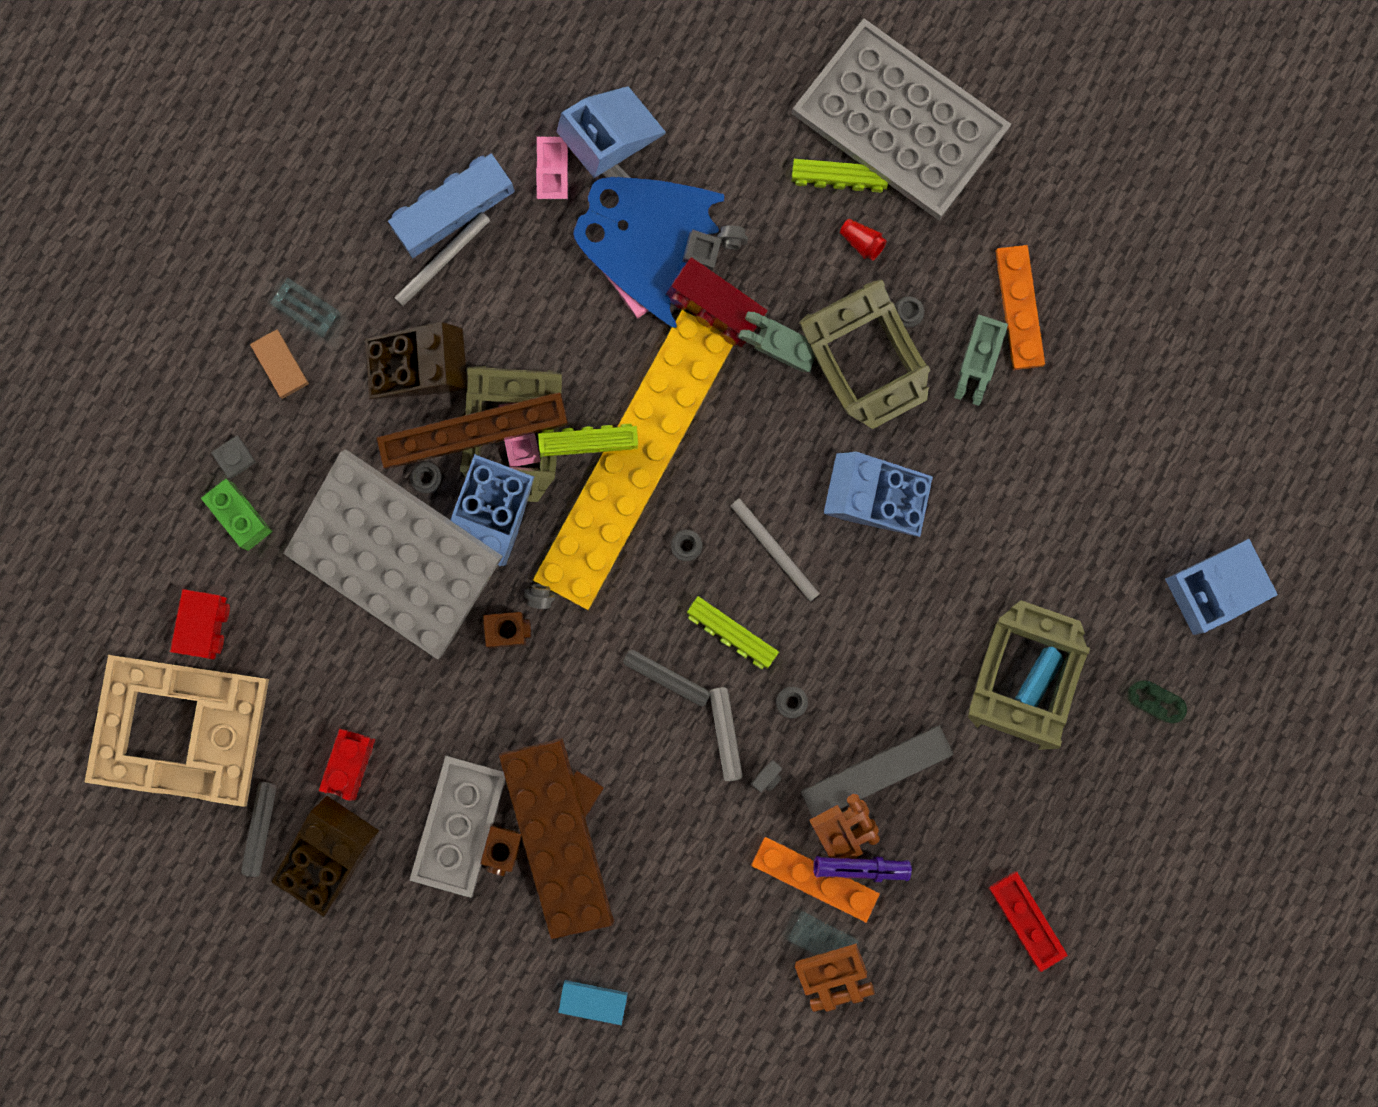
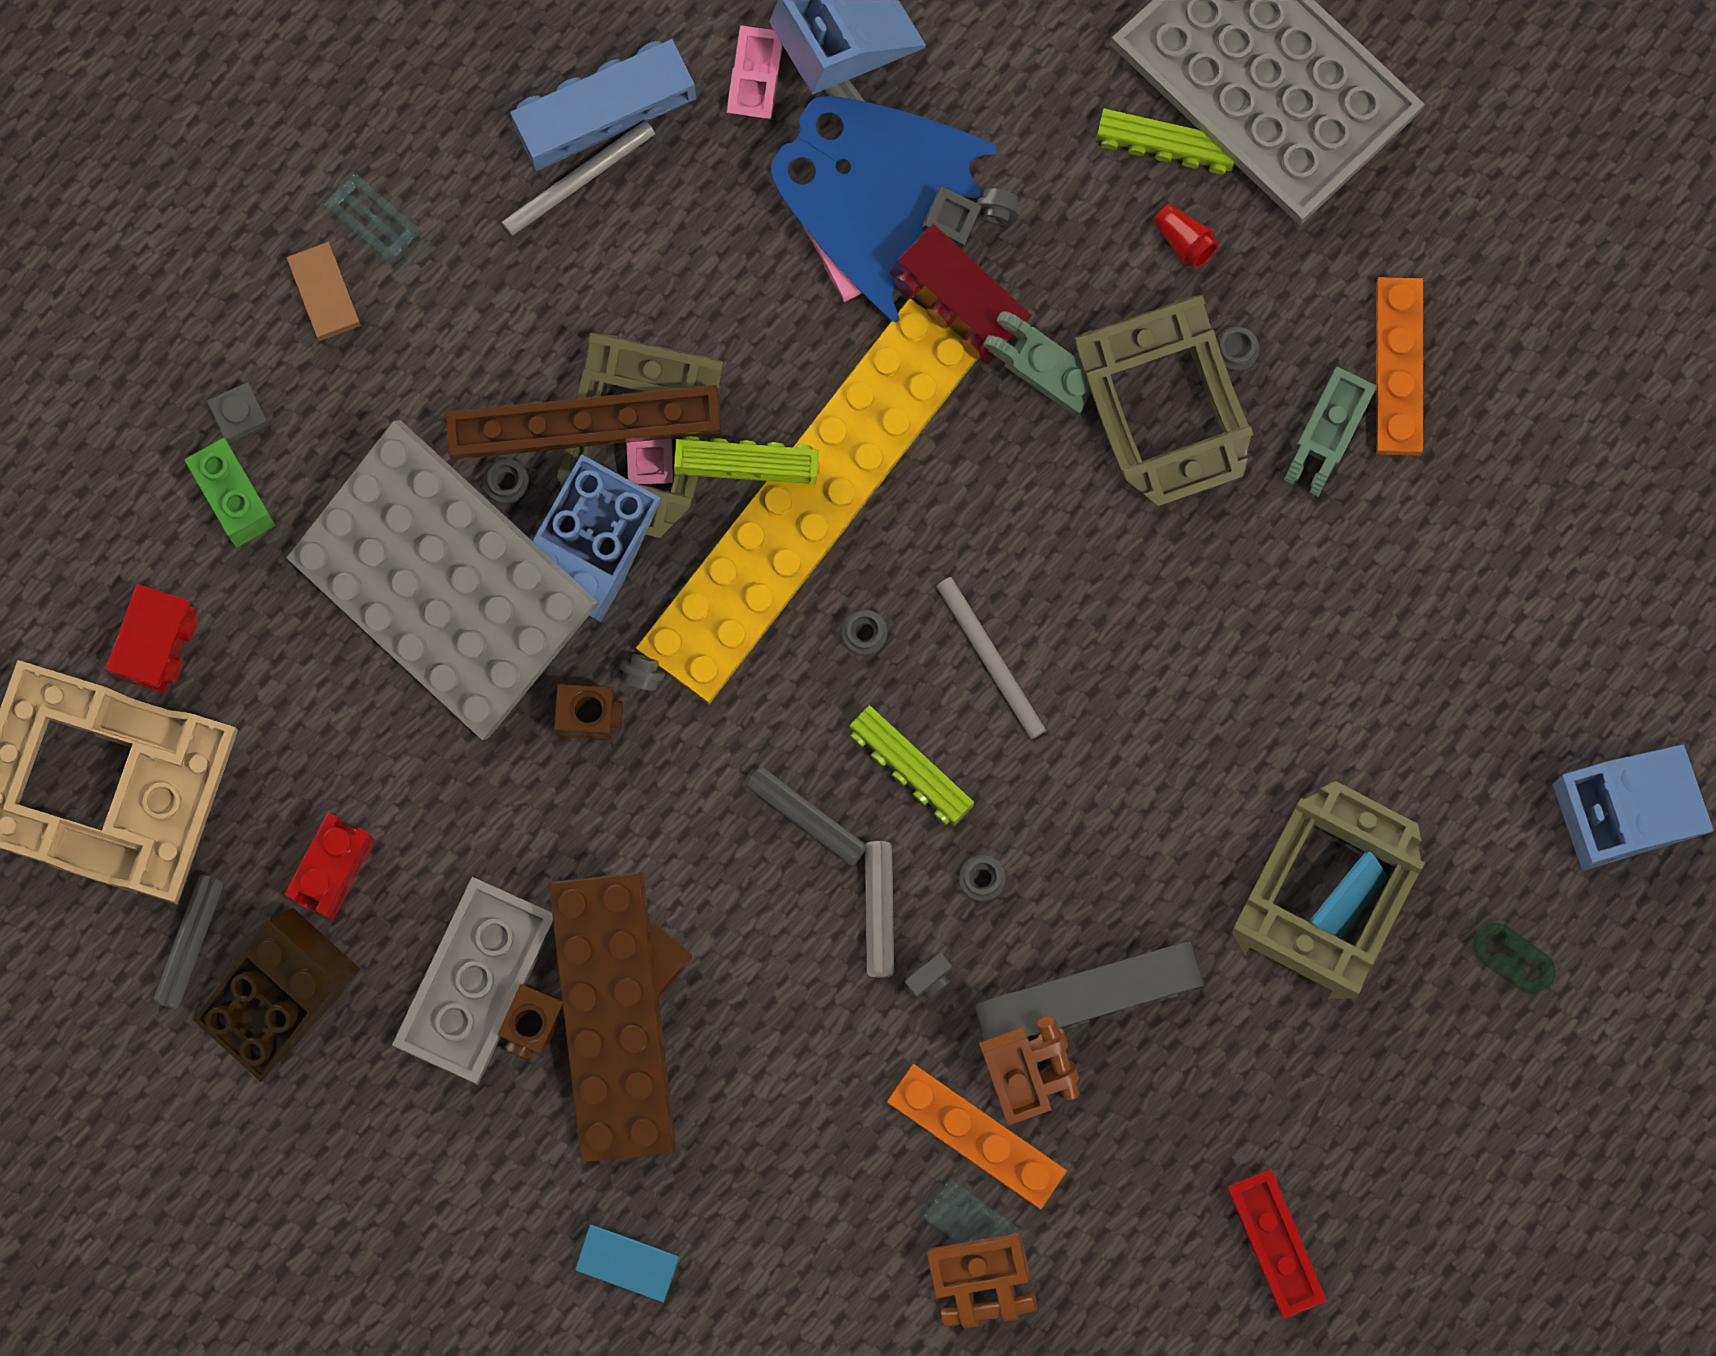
camera: 15 degrees right, 5 degrees down
(416, 362) = (519, 316): dark brown slope -> none
(874, 869) = (1097, 1142): dark purple pin -> none
(877, 493) = (1152, 599): medium blue slope -> none

